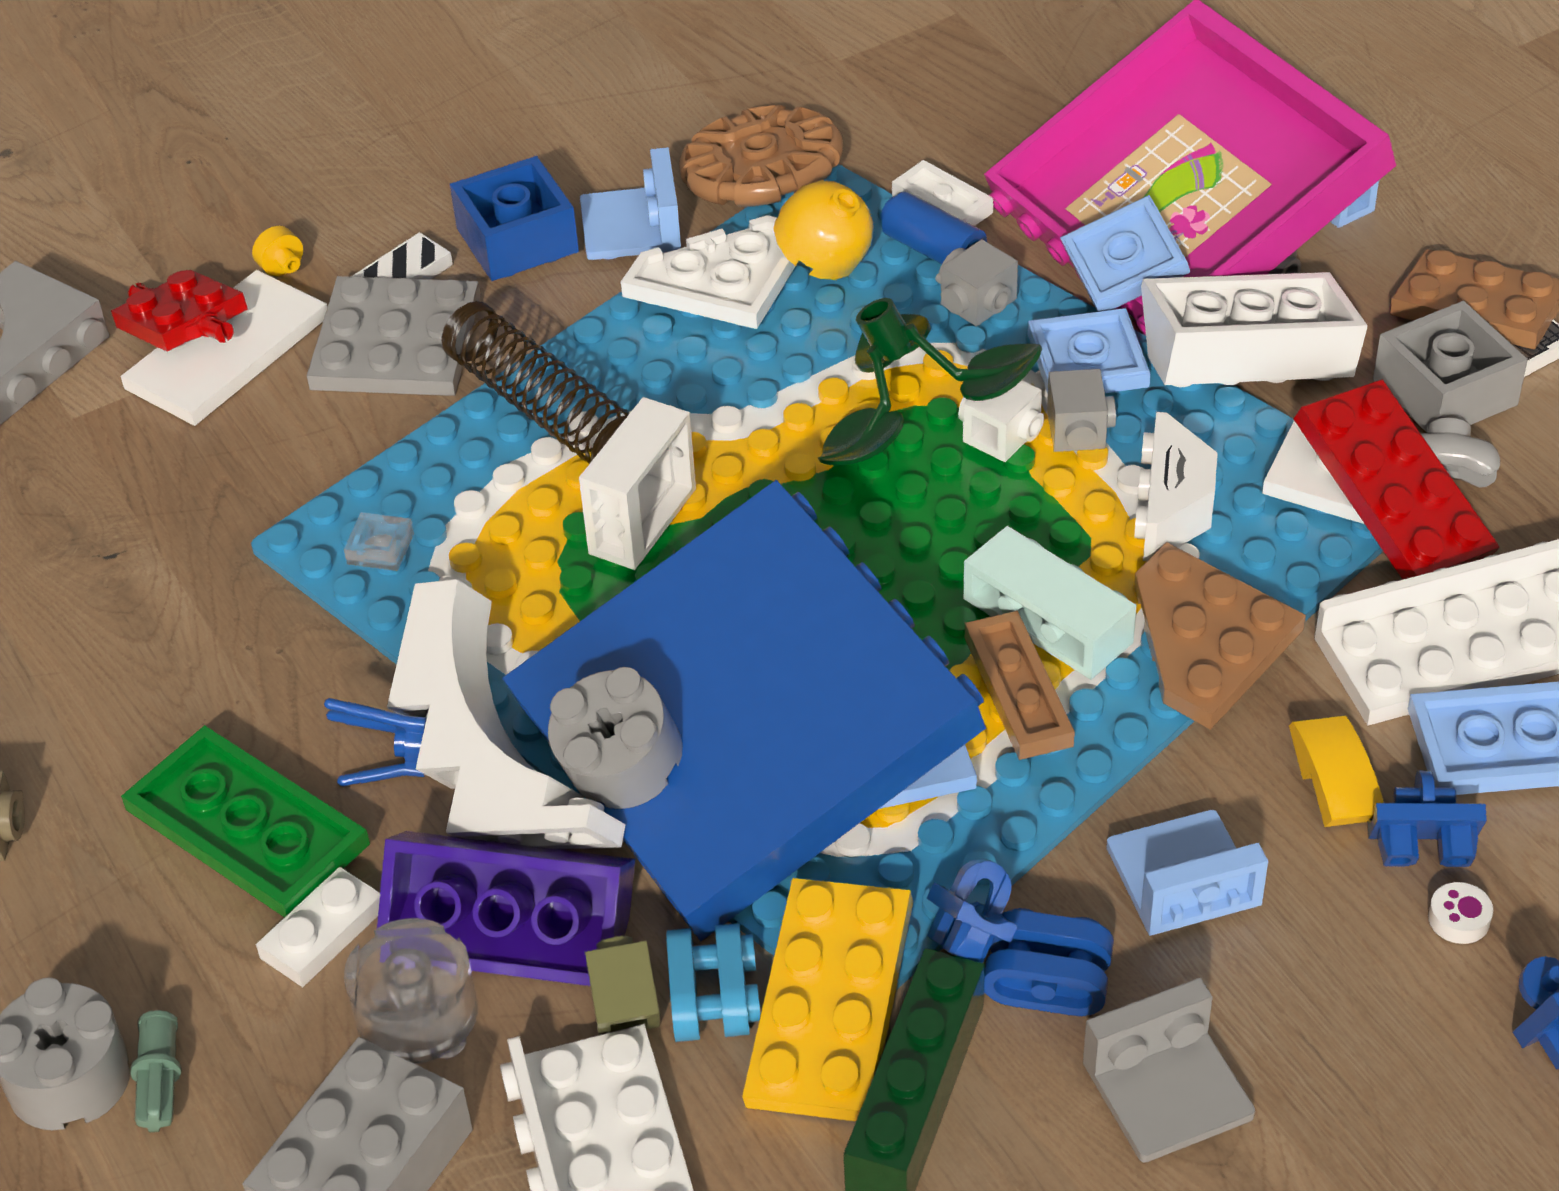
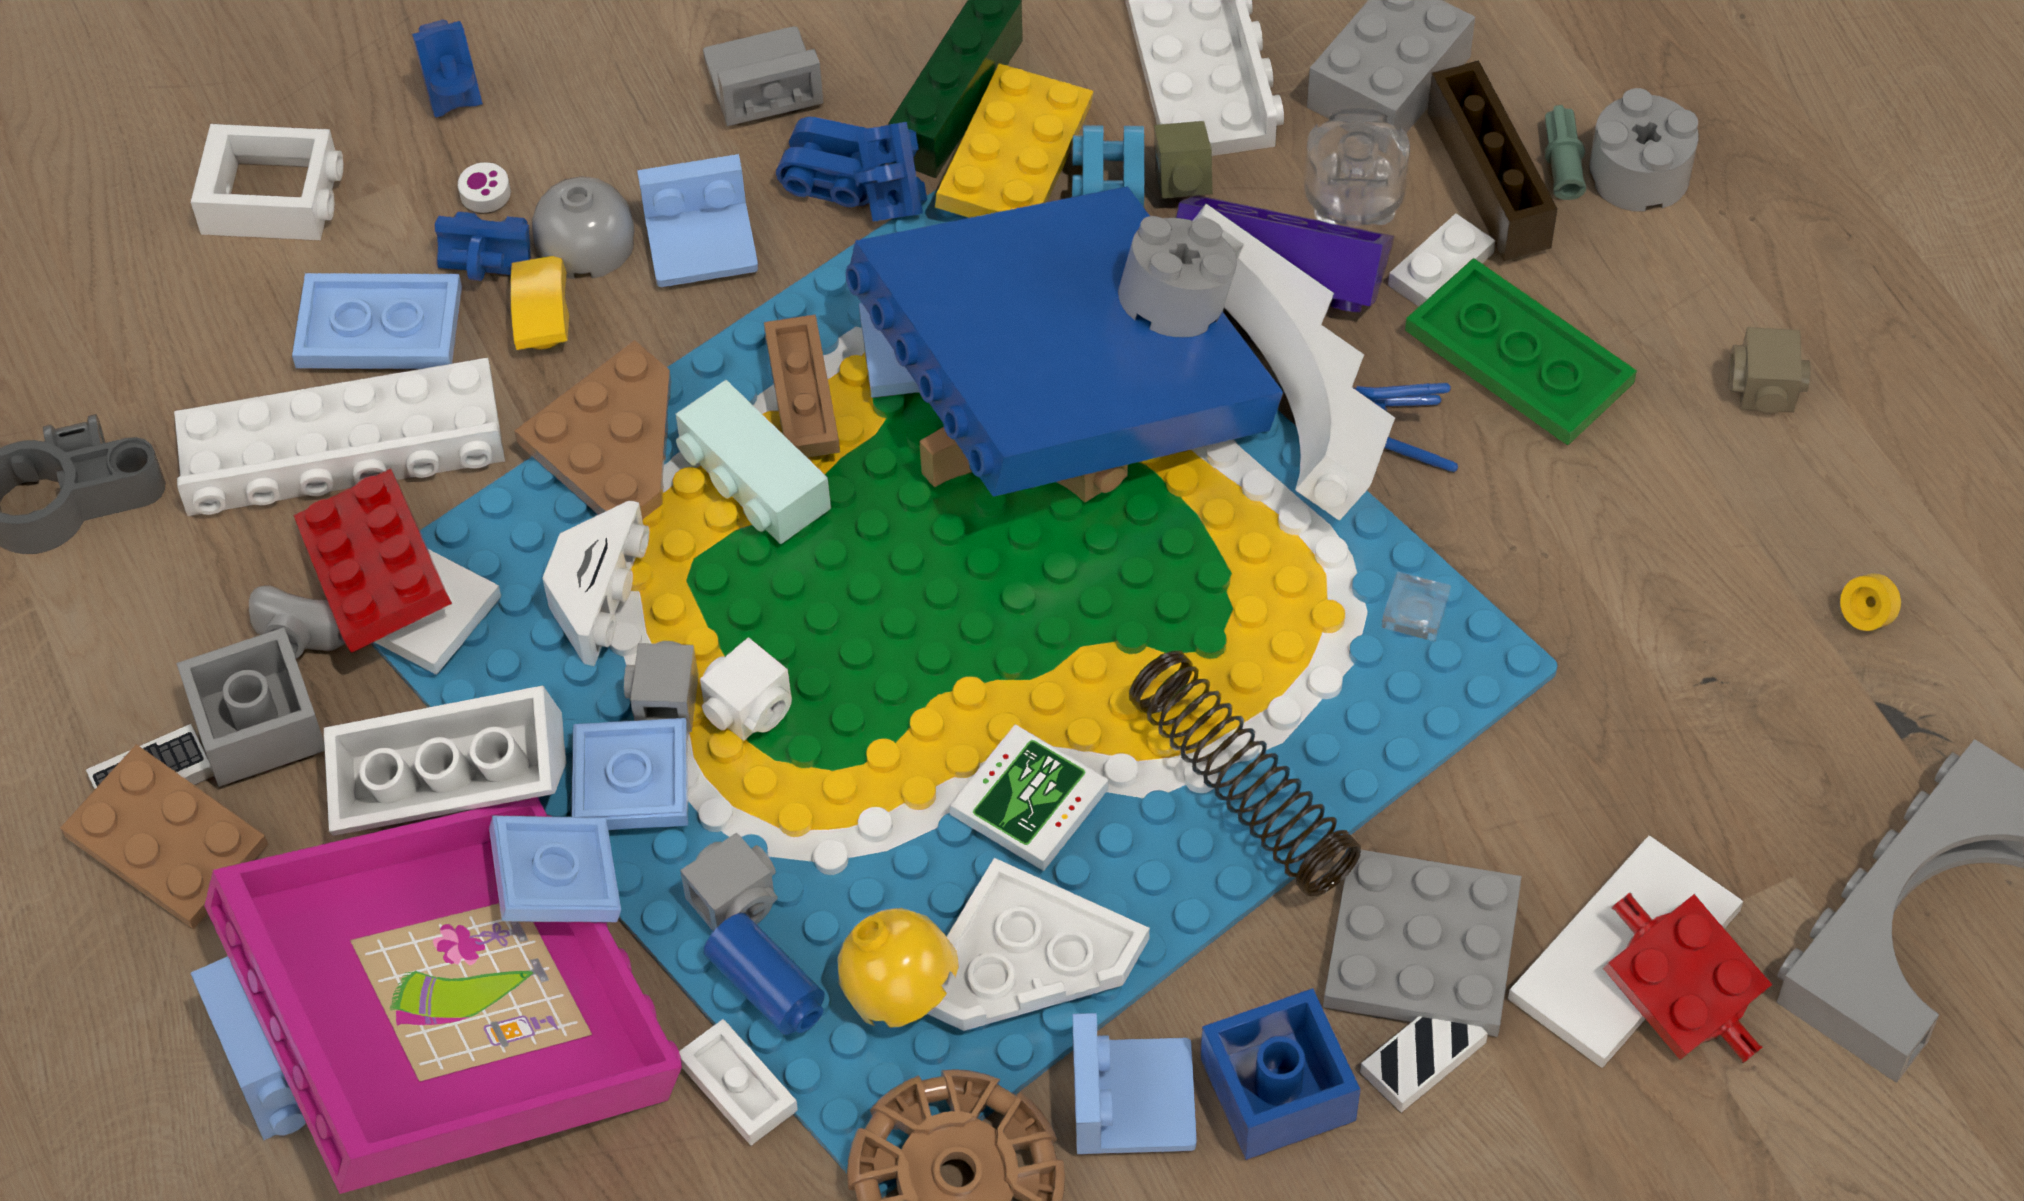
camera: 175 degrees left, 10 degrees up
(247, 1013) = (1492, 160): none -> dark brown brick
(278, 251) = (1577, 1078): yellow tile -> none
(638, 483) = (1142, 602): white window -> none
(733, 378) = (1029, 797): none -> tile
(888, 338) = (893, 684): dark green plant -> none
(1322, 864) = (584, 225): none -> light grey cylinder

